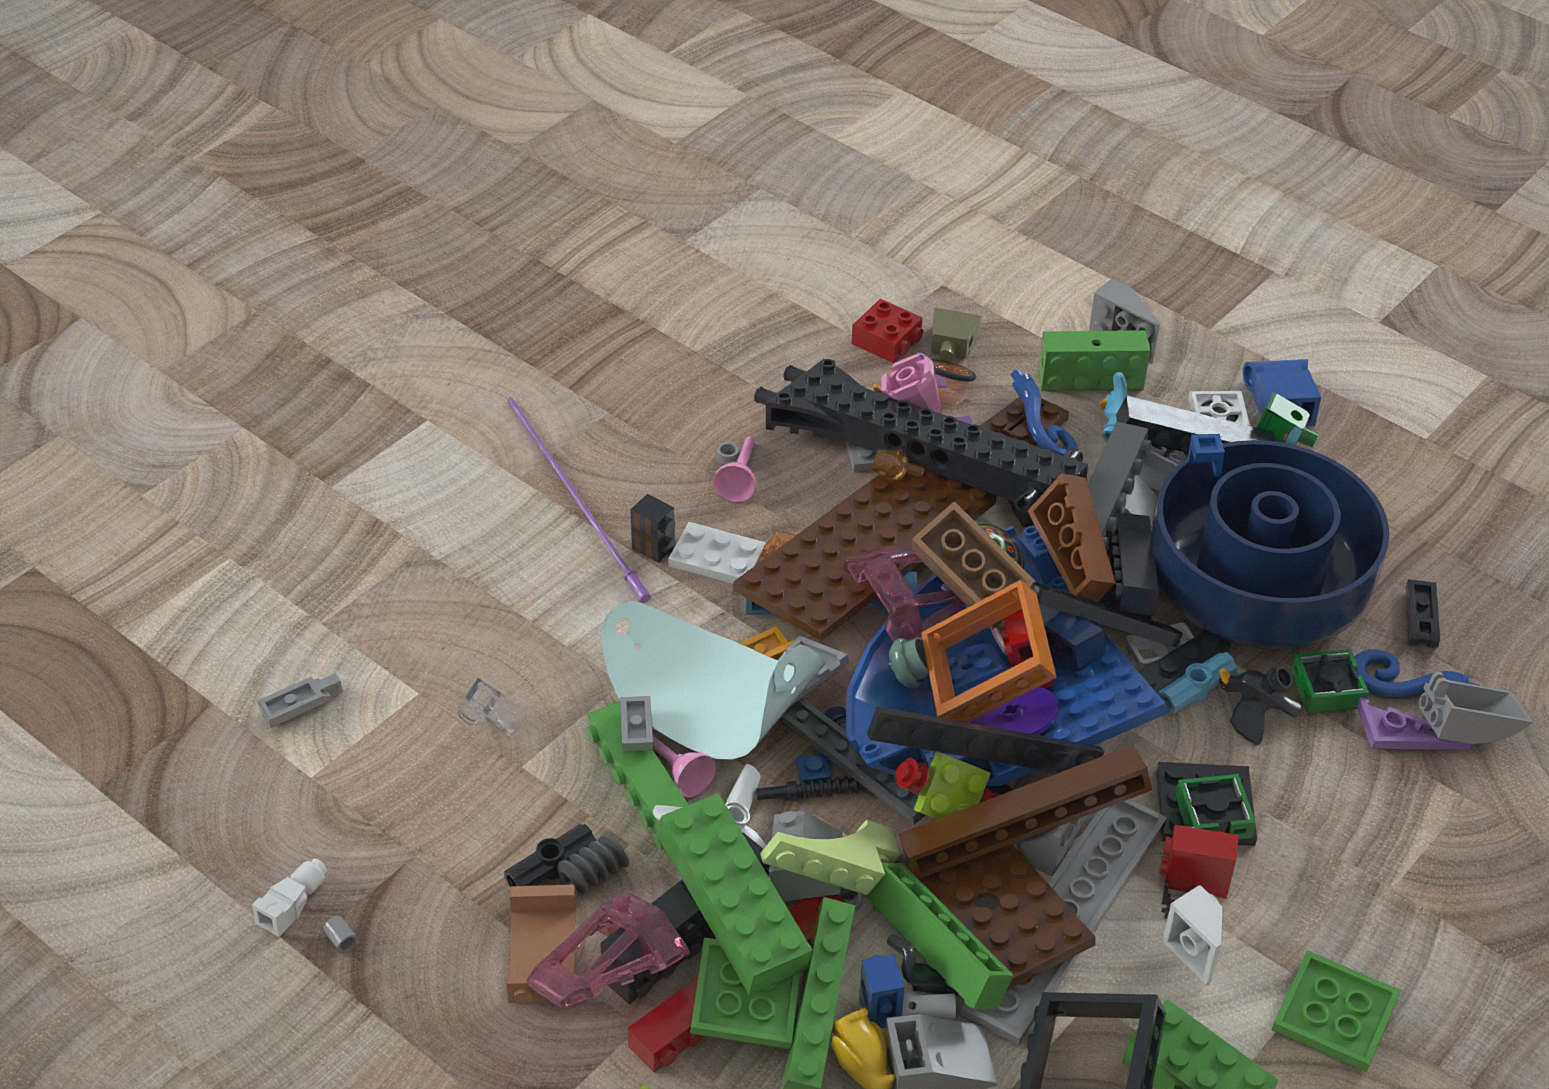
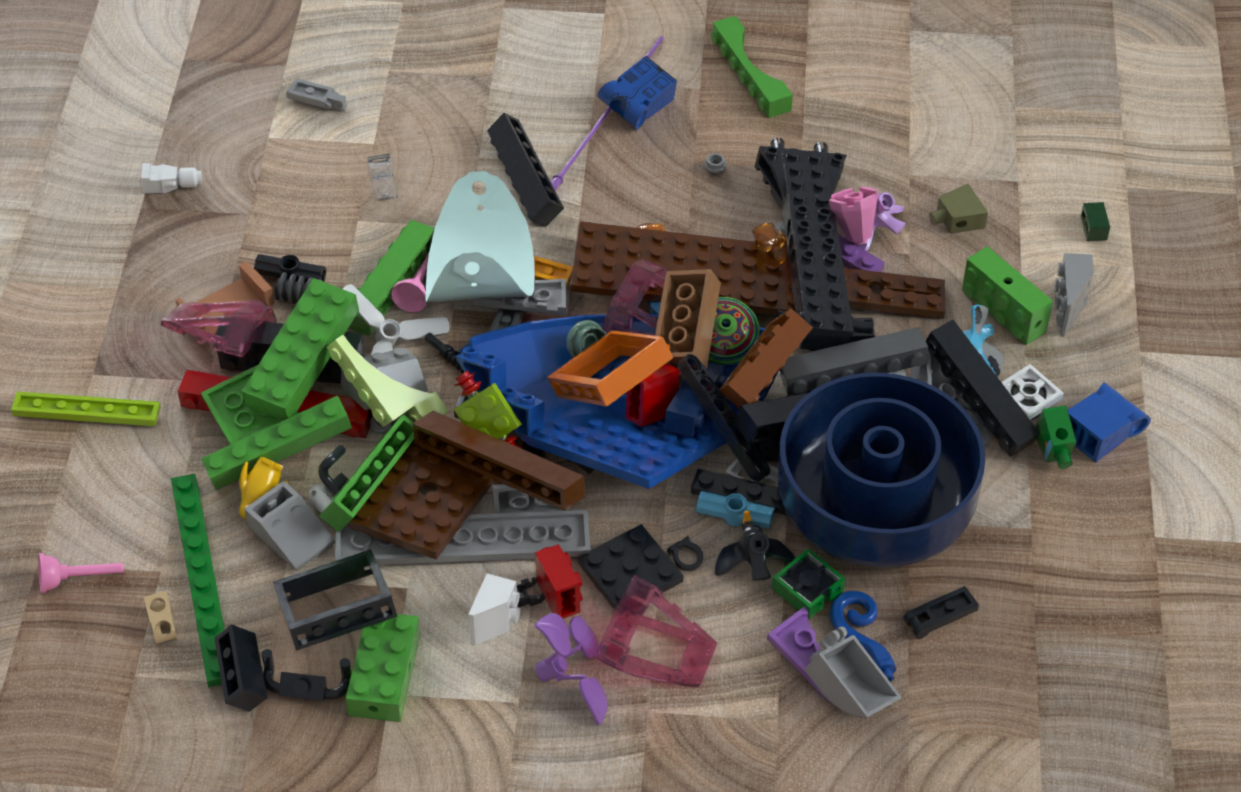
camera: 55 degrees right, 5 degrees up
(340, 934) = (162, 215): light grey hinge -> none
(585, 449) = (639, 92): none -> blue piece
(594, 587) = (525, 170): none -> black brick
(636, 723) = (416, 242): light grey plate -> none
(653, 528) = (597, 161): black brick -> none
(673, 367) = (770, 93): none -> bright green arch
(715, 553) = (618, 204): white plate -> none
(735, 480) = (688, 176): bright pink piece -> none
(881, 988) = (304, 468): blue brick -> none
(887, 330) = (924, 174): red brick -> none
(953, 371) = (917, 227): wheel -> none
(978, 741) = (524, 402): black plate -> none
(1027, 714) = (590, 419): dark purple piece -> none
(1031, 398) = (928, 276): blue plant -> none
(1043, 266) = (1095, 221): none -> dark green piece
(1206, 756) = (673, 549): none -> black piece
(1207, 449) = (900, 375): blue panel -> none
(1216, 805) = (609, 566): piece -> none
(1272, 835) = (623, 623): none -> clear pink windscreen
(1301, 926) = (557, 635): none -> medium lavender plant
(1336, 1010) = (500, 721): bright green plate -> none

